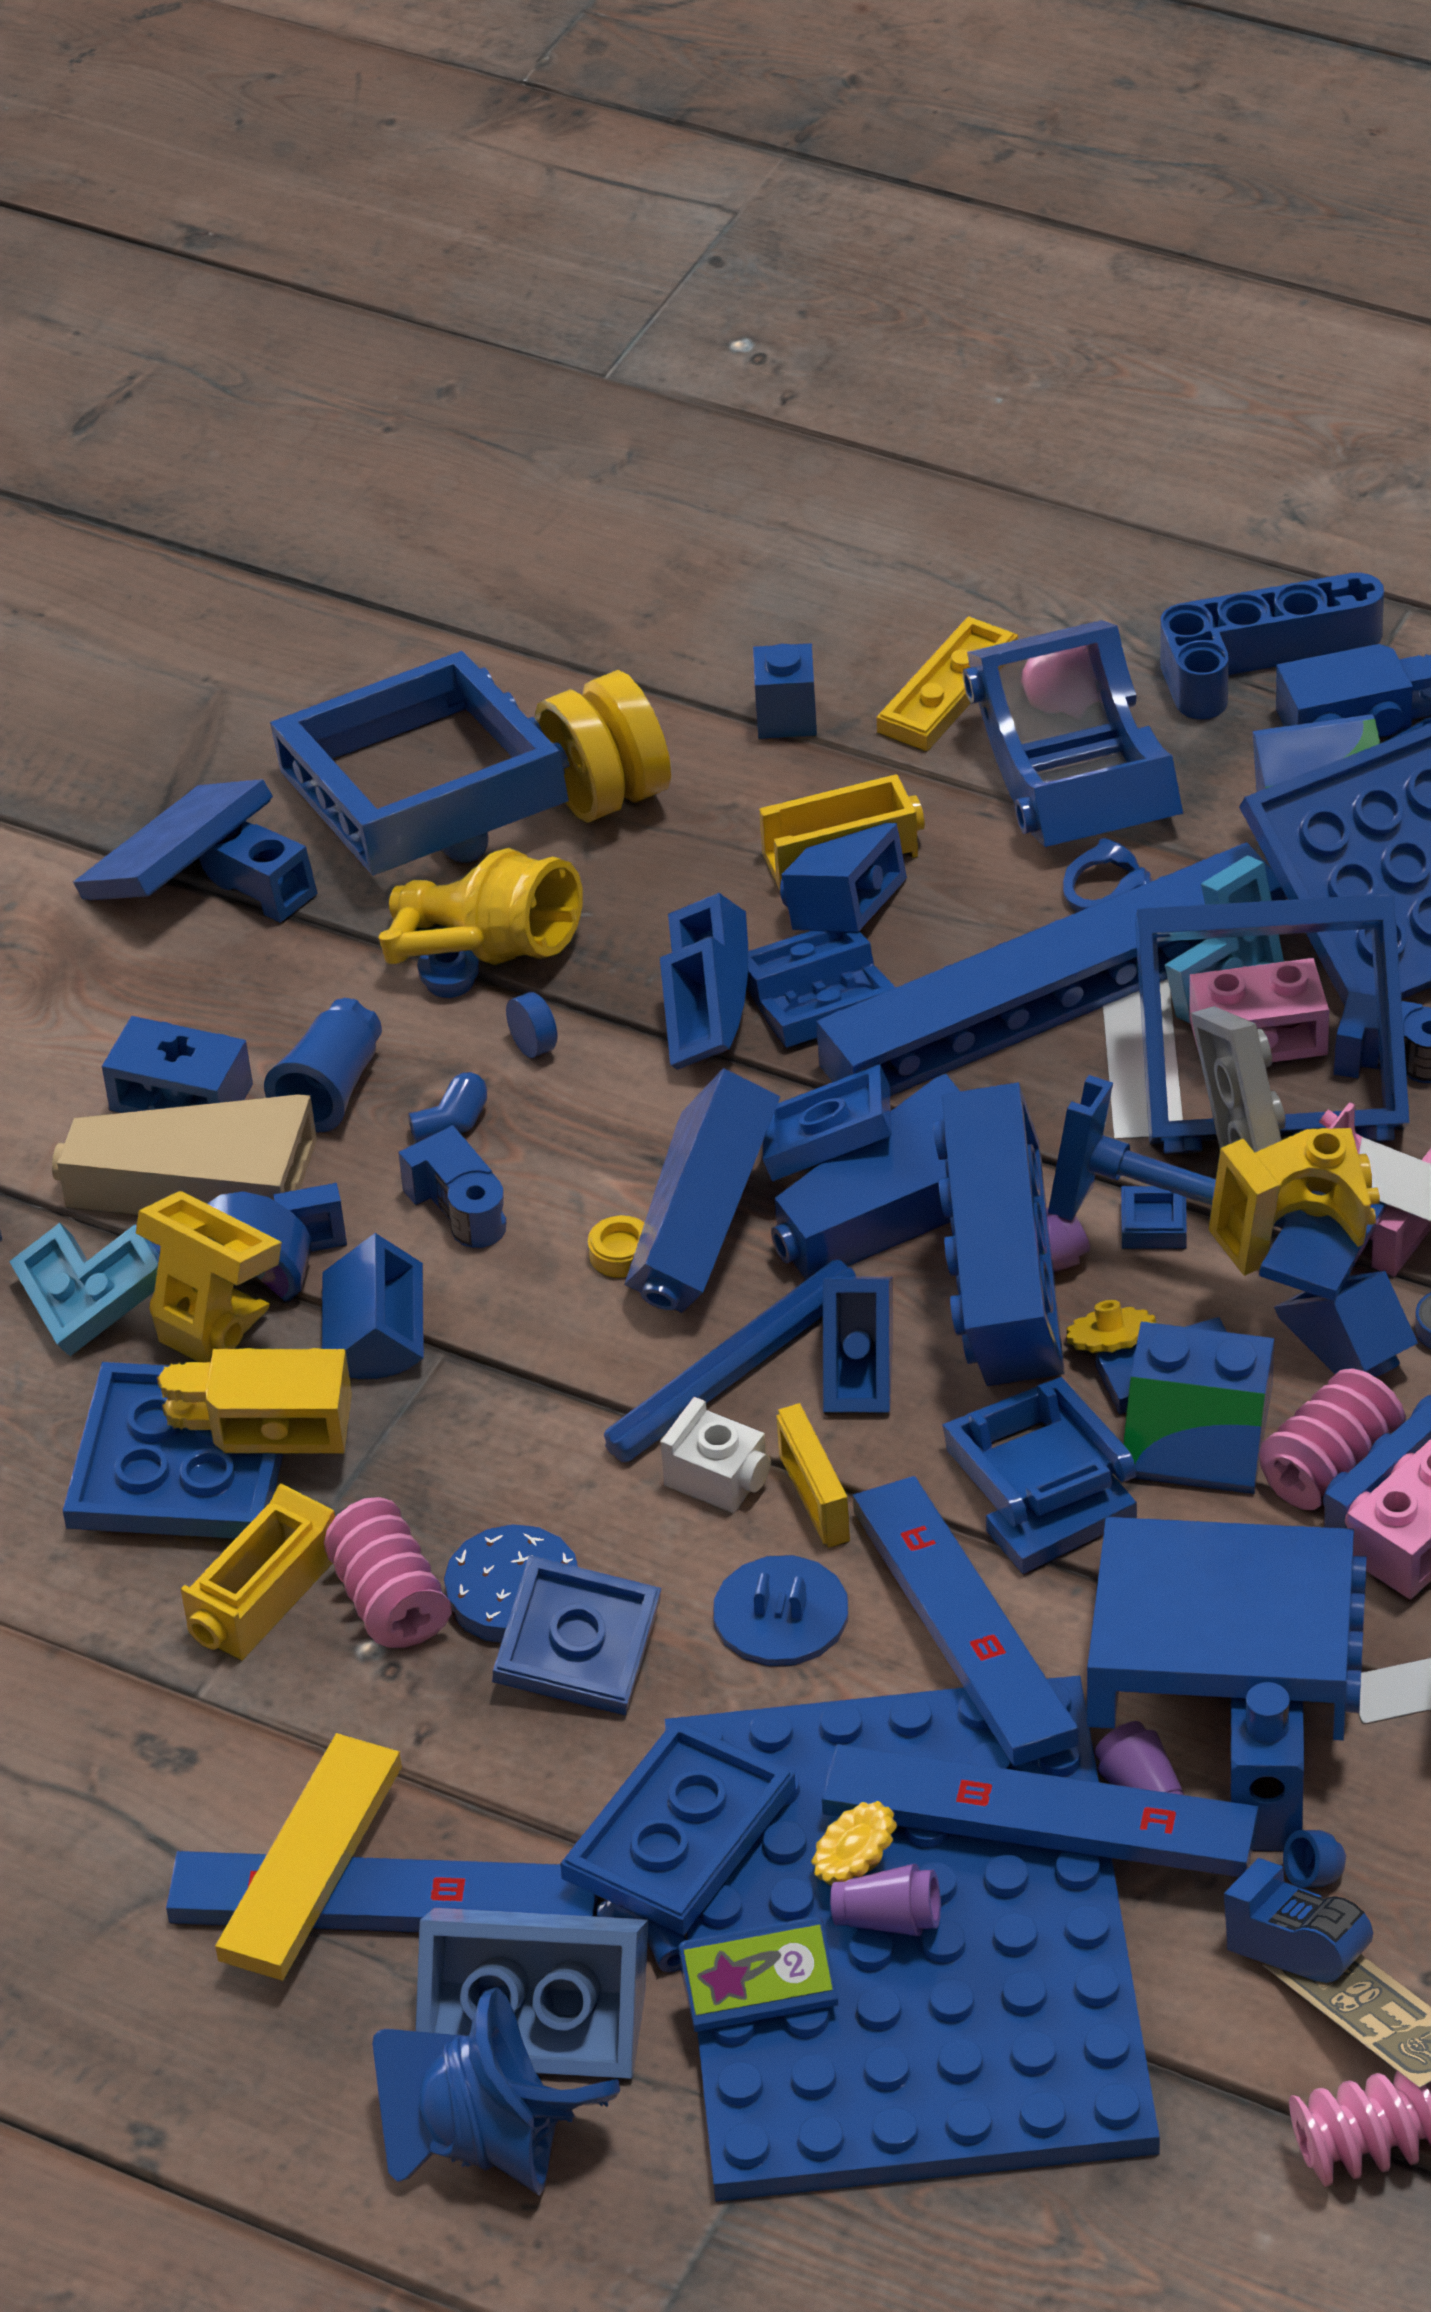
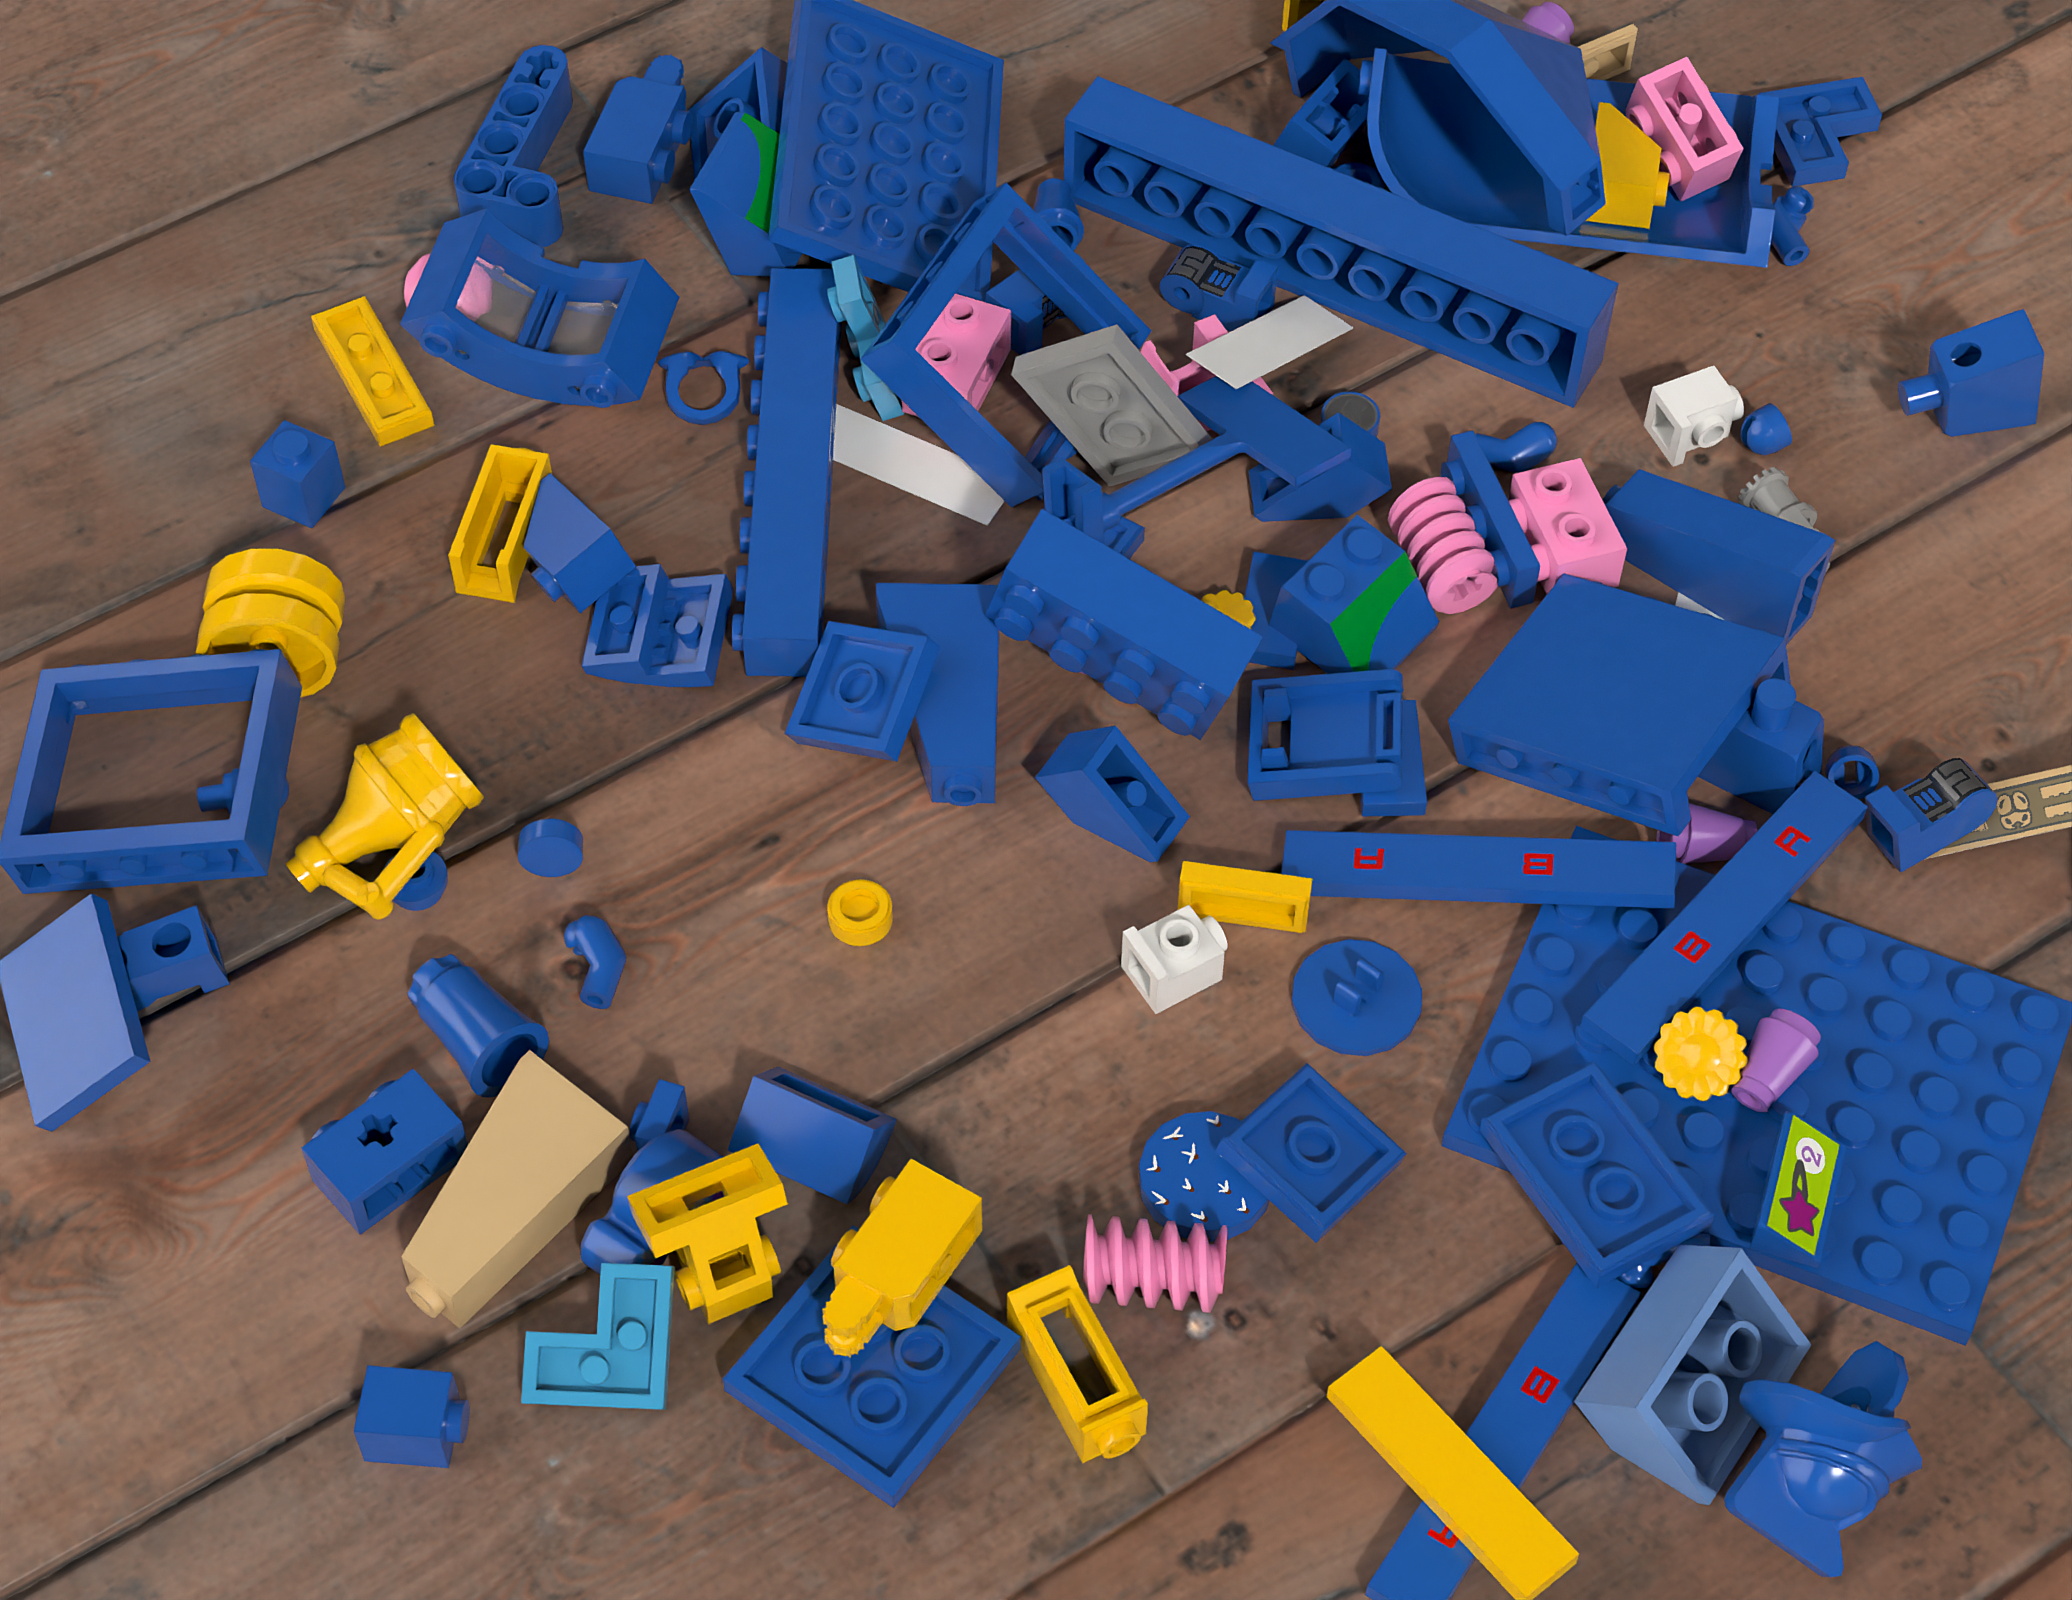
camera: 65 degrees left, 10 degrees up
(458, 1183) = (710, 994): blue leg -> none
(700, 1190) = (874, 814): blue slope -> none
(704, 978) = (613, 699): blue slope -> none
(722, 1365) = (1060, 899): blue axle -> none
(1277, 1180) = (1244, 403): yellow tile -> none

